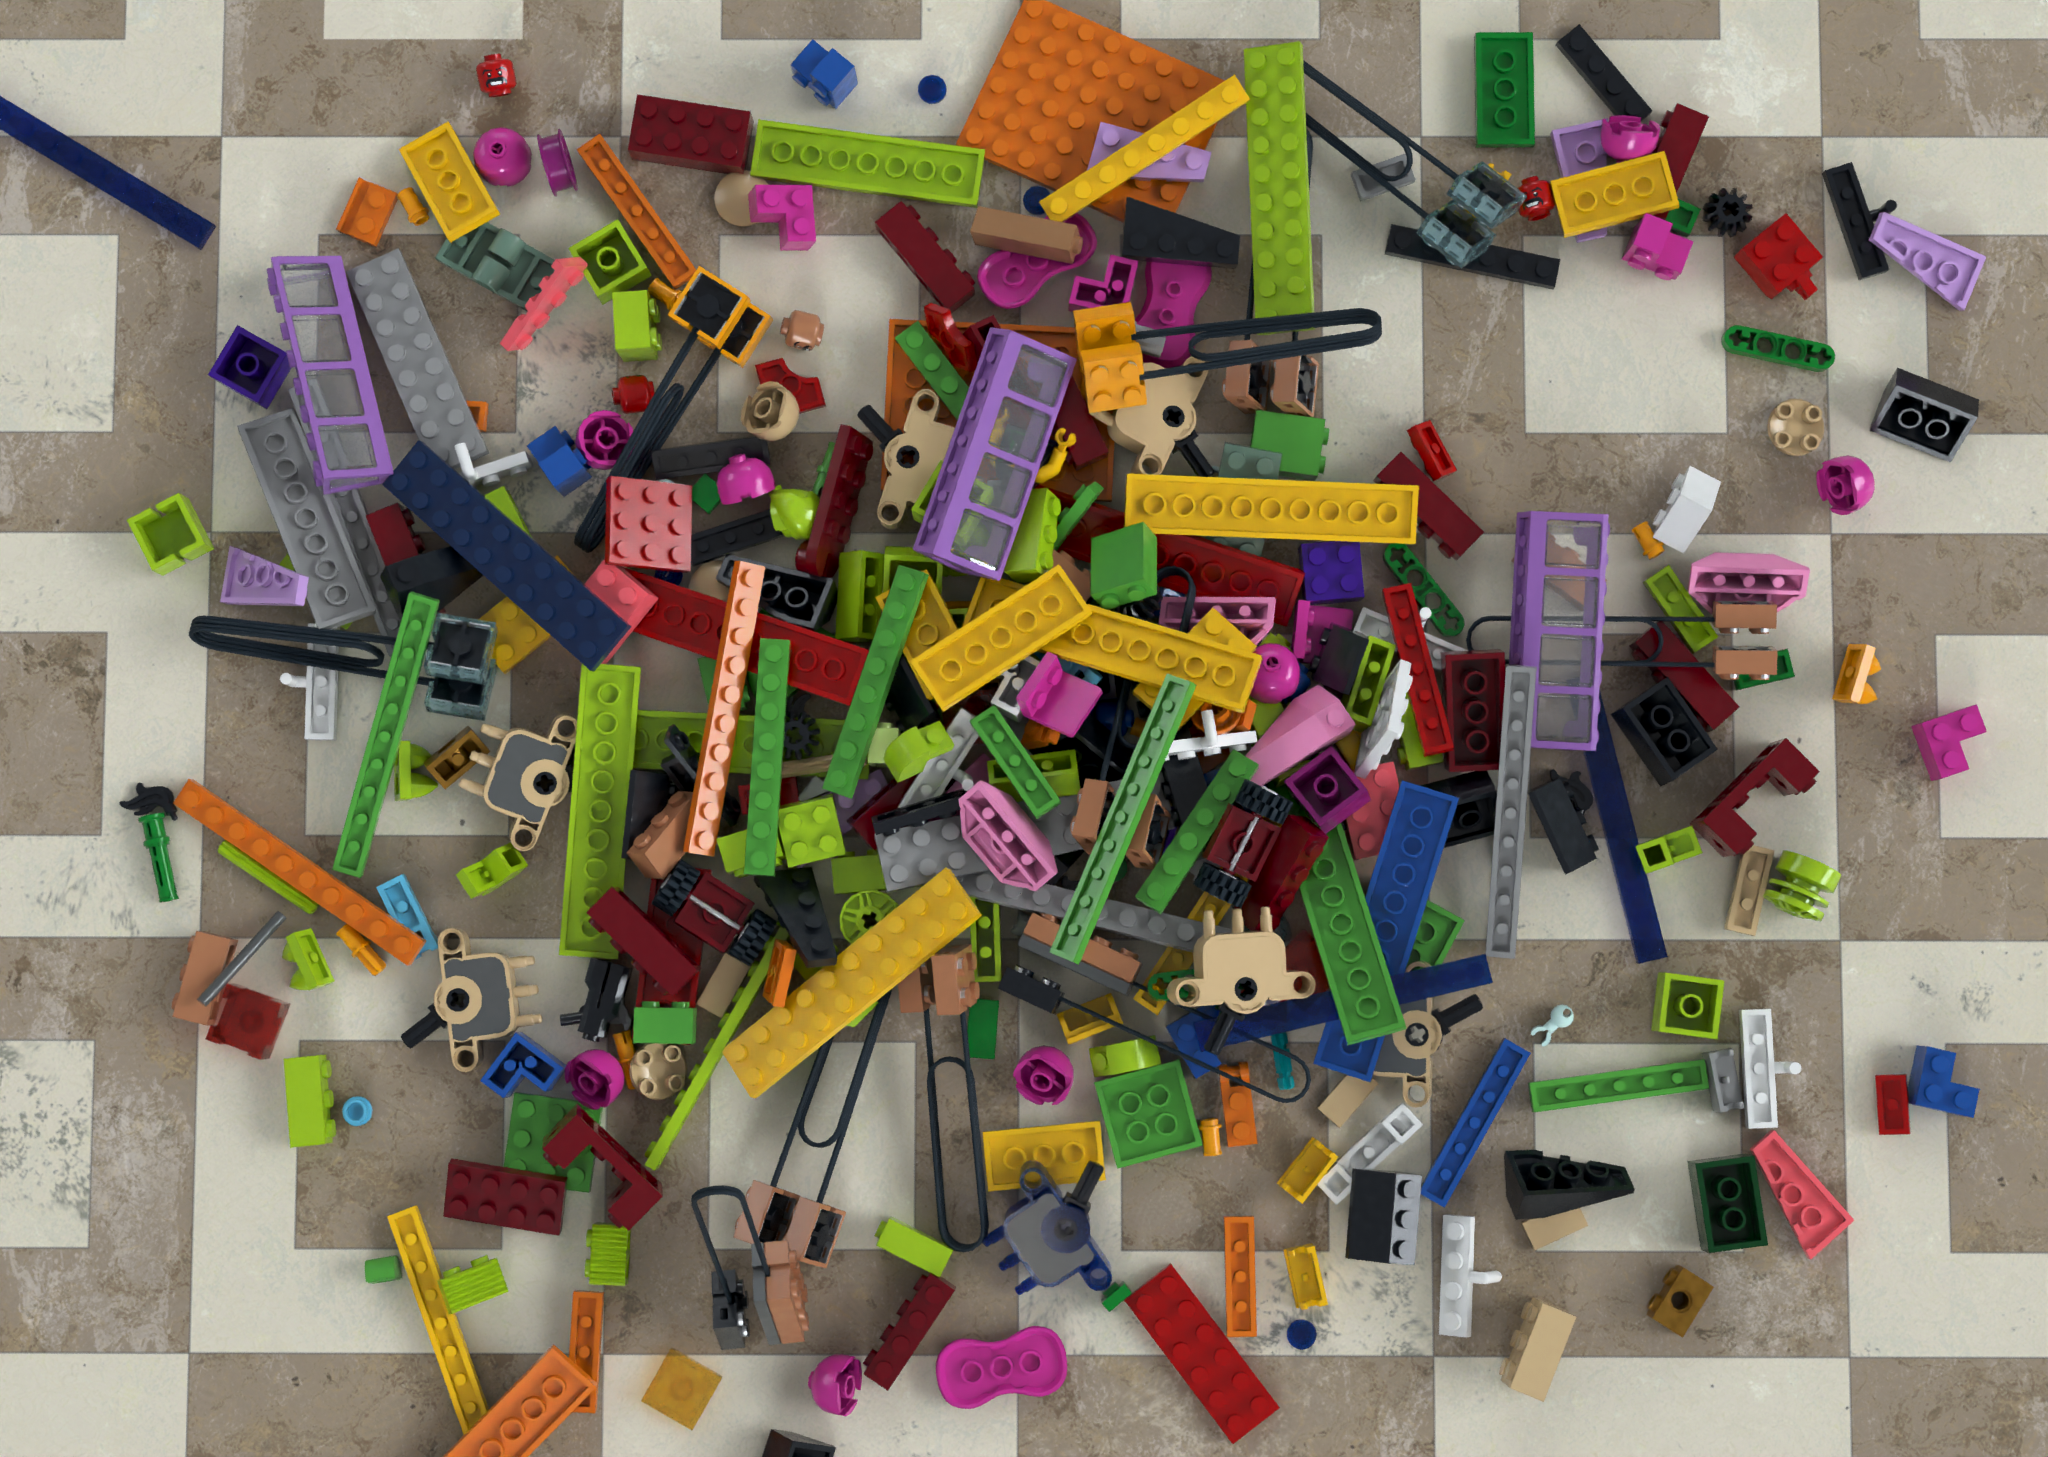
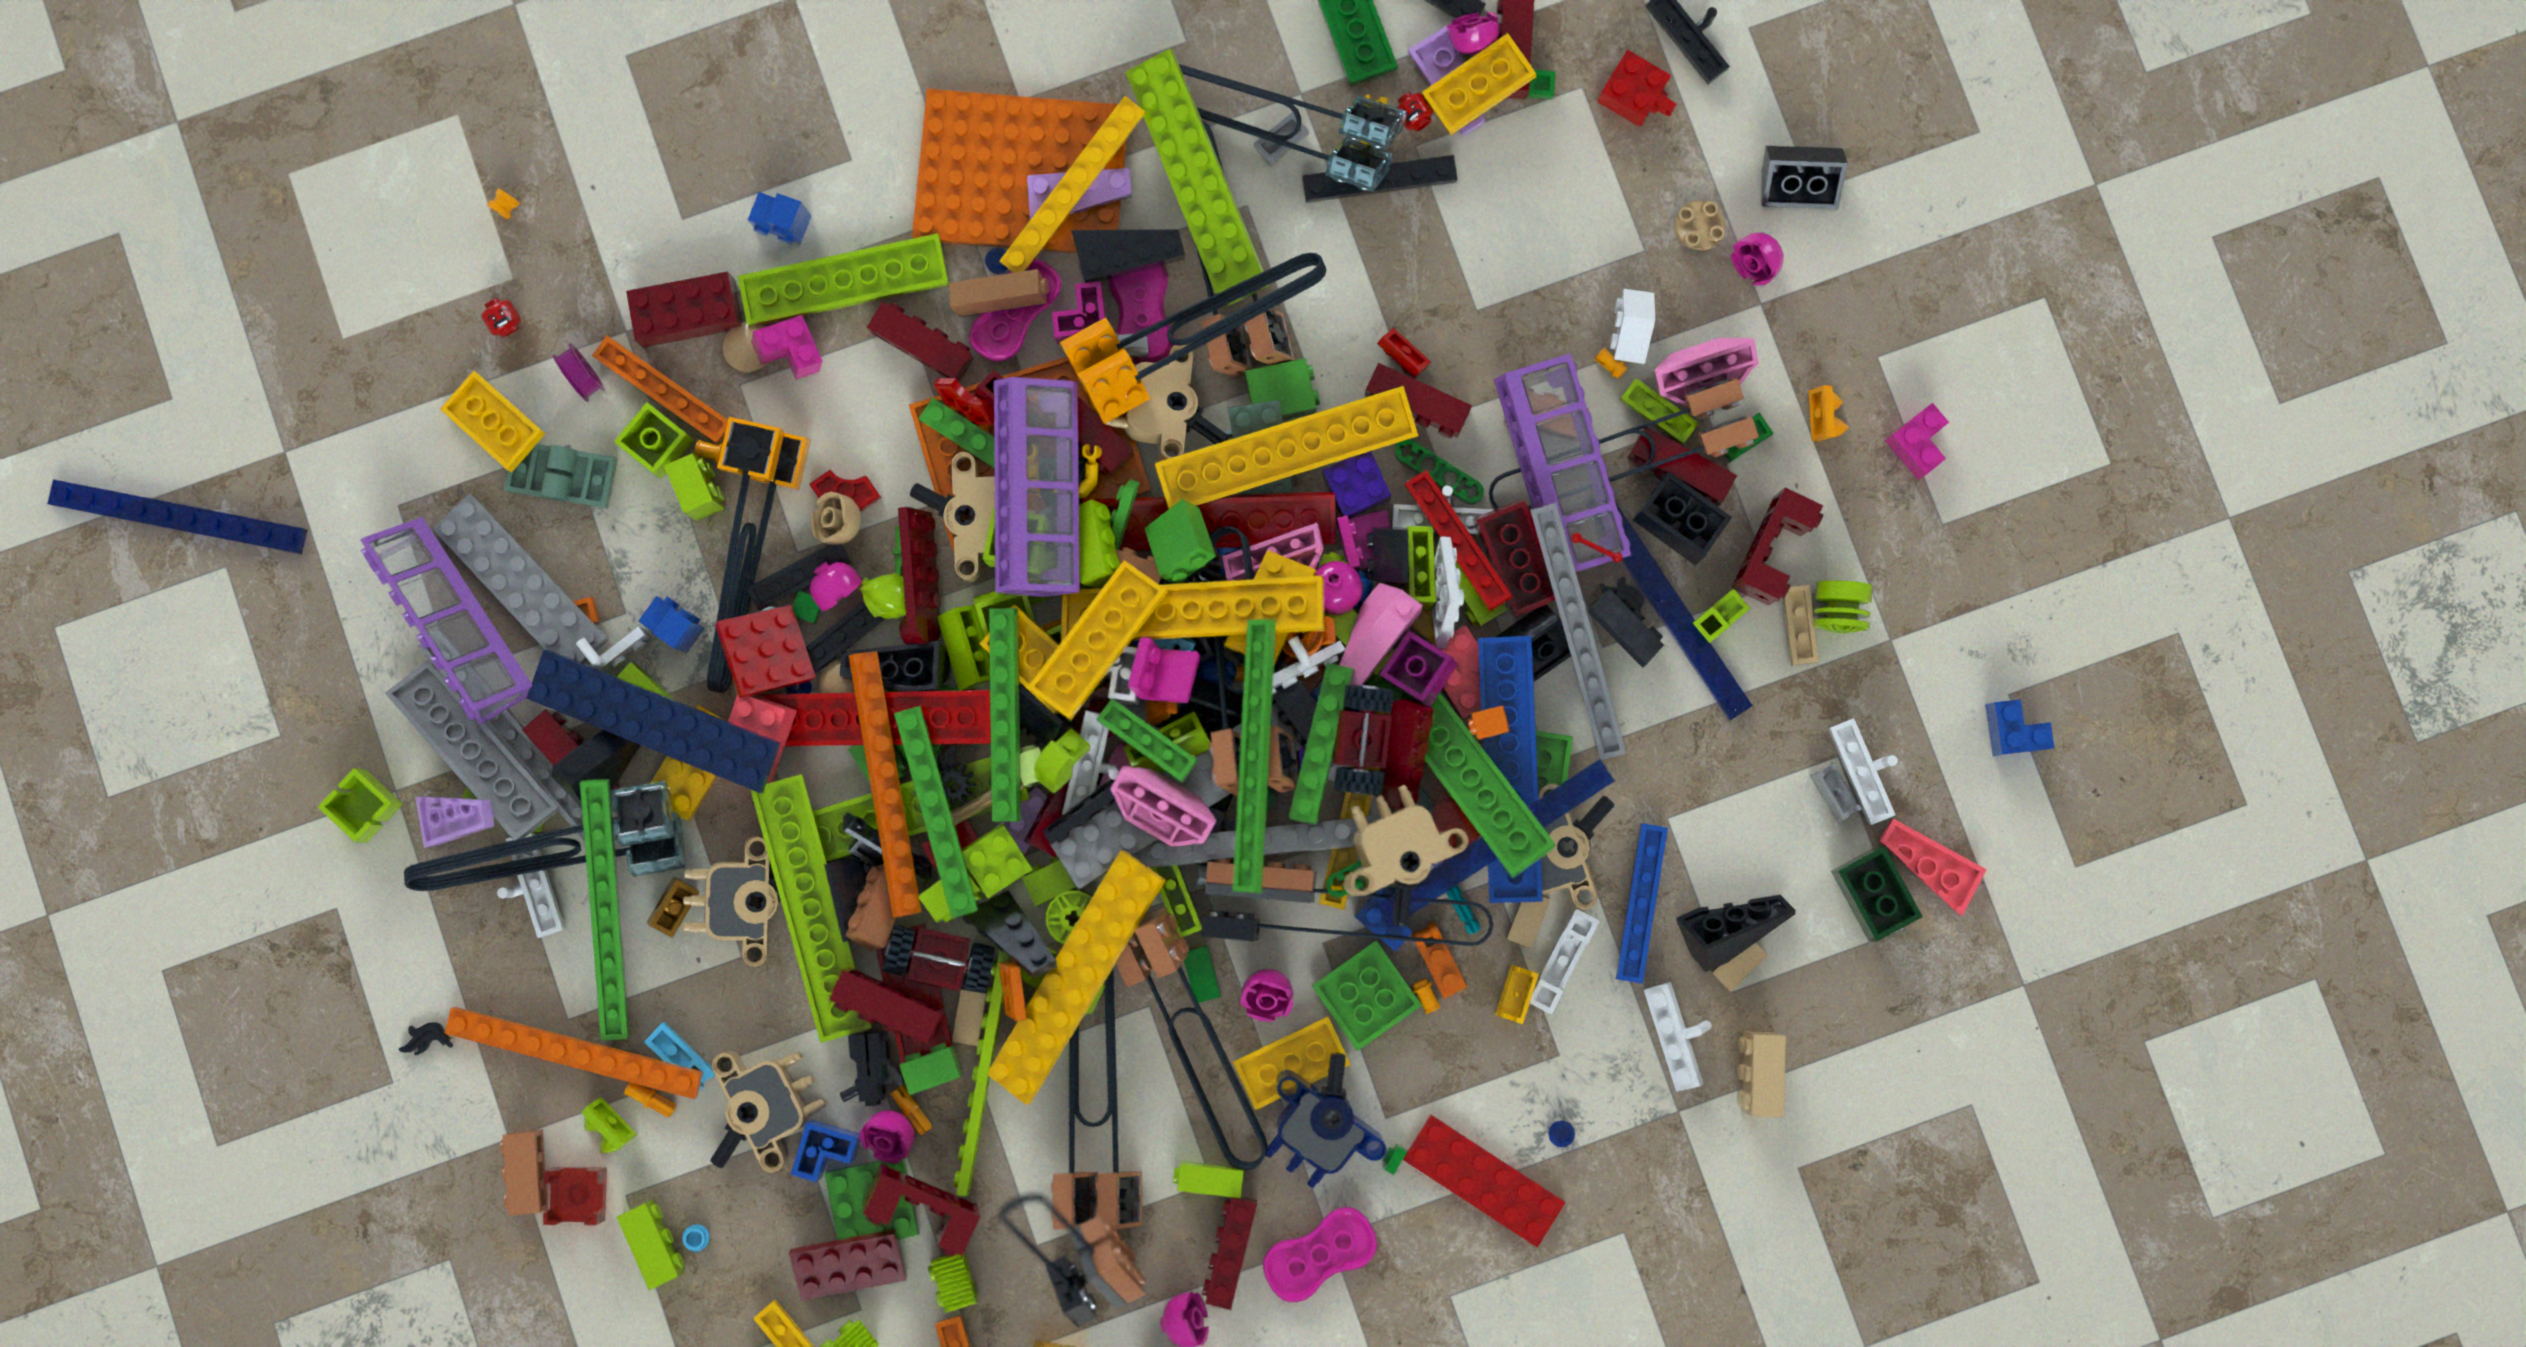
camera: 20 degrees left, 0 degrees up
(157, 844) = (443, 1072): green pin -> none
(241, 959) = (550, 1144): dark grey bar -> none
(251, 367) = (378, 639): dark purple brick -> none
(267, 877) = (547, 1067): lime axle -> none
(367, 212) = (432, 472): orange plate -> none
(406, 783) = (639, 944): lime tile -> none
(417, 213) = (475, 457): light orange pin -> none
(492, 871) = (738, 992): lime brick -> none
(502, 157) = (531, 384): dark pink cylinder -> none
(567, 273) = (613, 483): coral wing -> none
(602, 438) = (700, 592): dark pink cylinder -> none
(633, 393) = (713, 545): red head -> none
(658, 1070) = (940, 1110): tan dish -> none
(802, 330) = (838, 440): nougat head -> none
(813, 789) = (985, 825): light grey slope -> none
(932, 89) = (875, 198): clear blue plate -> none
(1081, 1025) = (1281, 942): yellow hinge -> none
(1124, 1057) = (1329, 955): lime brick -> none
(1240, 1276) = (1492, 1104): orange plate -> none
(1305, 1276) = (1547, 1084): yellow hinge -> none
(1381, 873) = (1489, 722): none -> orange brick
(1383, 1216) = (1594, 1010): black slope -> none
(1545, 712) = (1577, 537): none -> red hinge
(1557, 1020) = (1680, 791): light aqua arm -> none
(1618, 1085) = (1750, 828): bright green plate -> none
(1657, 248) = (1530, 117): dark pink brick -> none
(1687, 1005) = (1784, 740): lime brick -> none
(1694, 1292) = (1877, 980): pearl gold brick -> none
(1723, 202) = (1586, 73): black gear -> none
(1778, 346) = (1662, 168): green beam -> none
(1893, 1104) = (1983, 761): red plate -> none
(1929, 257) = (1763, 45): lavender wing -> none

